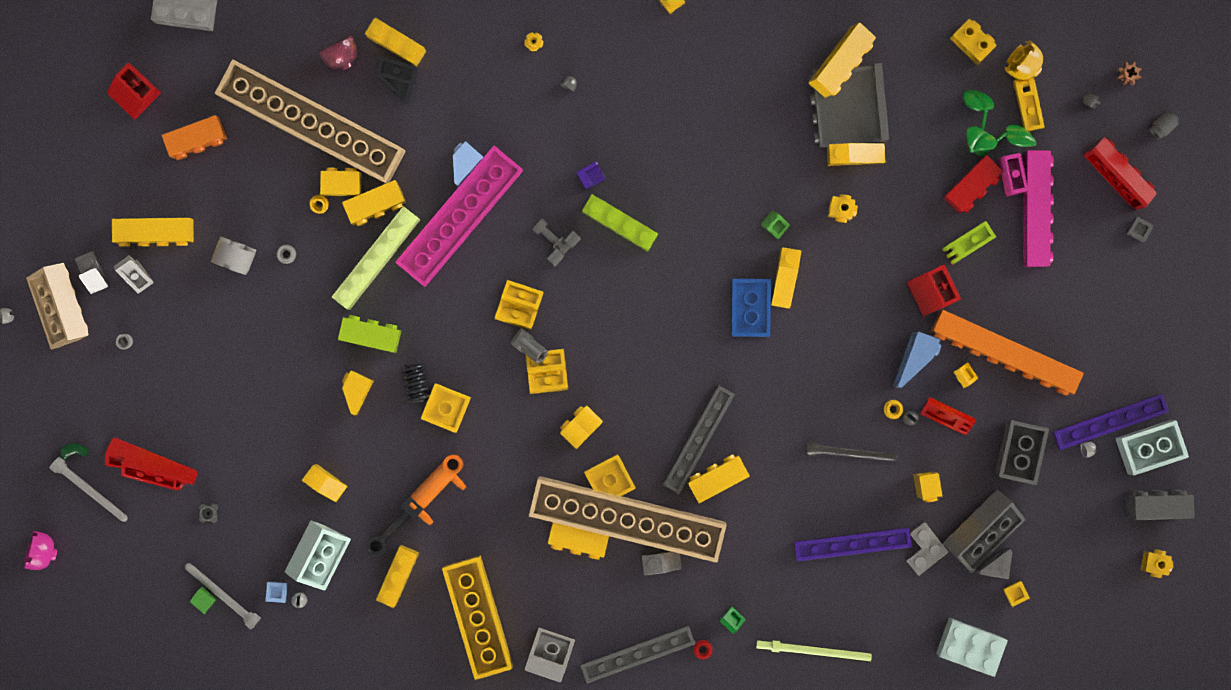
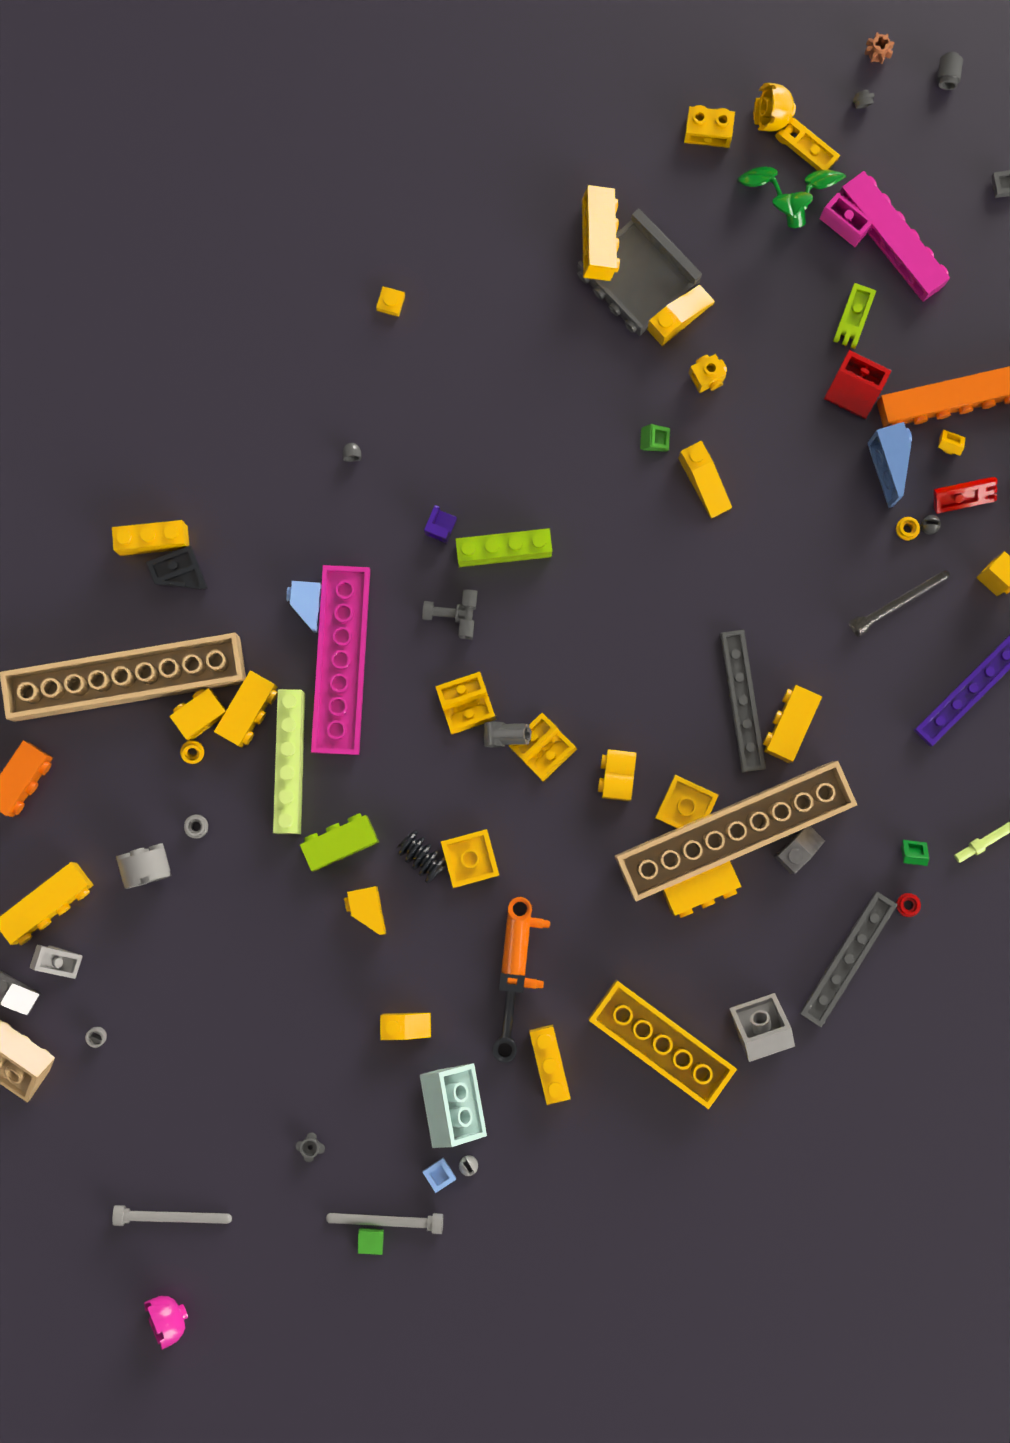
camera: 35 degrees left, 5 degrees down
(72, 448) = (121, 1188): dark green arm -> none
(148, 466) = (213, 1146): red wedge -> none
(340, 54) = (104, 589): clear pink cylinder -> none
(533, 46) = (286, 444): yellow plate -> none
(751, 307) = (694, 534): blue plate -> none
(973, 185) = (816, 258): red brick -> none
(1120, 174) = (946, 145): red slope -> none

